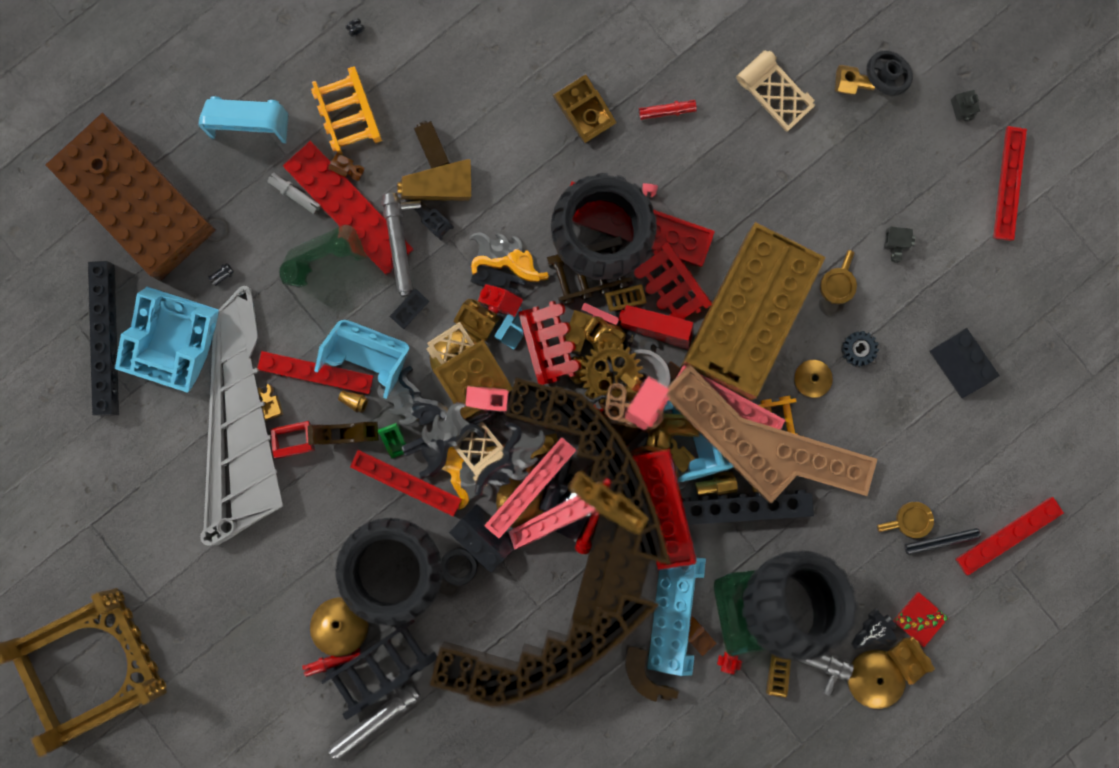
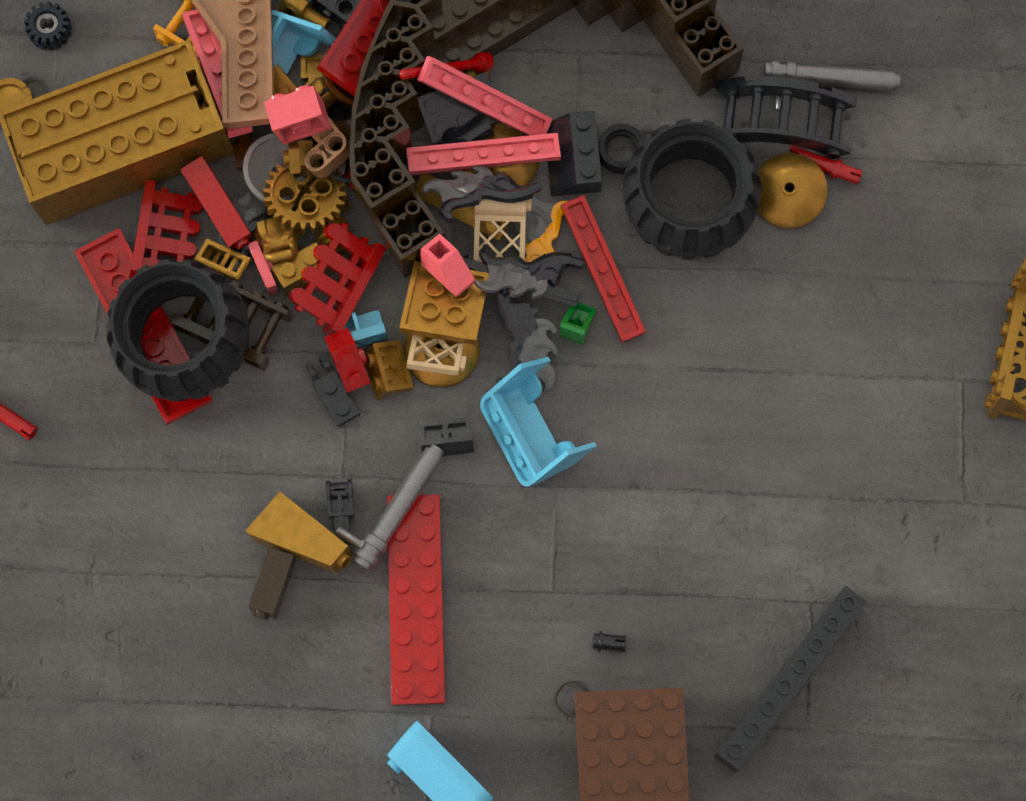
camera: 135 degrees left, 10 degrees down
(167, 339) = (722, 616): medium azure slope -> none
(250, 459) = (741, 420): light grey wing -> none
(272, 404) = (674, 461): pearl gold plate -> none
(287, 189) = (461, 673): light grey pin -> none
(293, 450) = (686, 395): red tile -> none
(305, 371) = (601, 459): red plate -> none
(339, 241) = (482, 571): clear green windscreen -> none
(343, 433) = (620, 367): dark brown arch -> none
(344, 166) = (381, 642): reddish brown plate -> none
(354, 401) = (584, 393): pearl gold cone -> none
(355, 27) = (235, 786): black bush -> none
(364, 114) = (299, 704): light orange fence -> none
(503, 253) = (300, 411): piece -> none
(584, 108) = (81, 488): pearl gold slope -> none
(607, 503) = (420, 50): pearl gold slope -> none
(649, 188) = (96, 349): coral hinge -> none
(804, 381) = (121, 48): pearl gold dish -> none

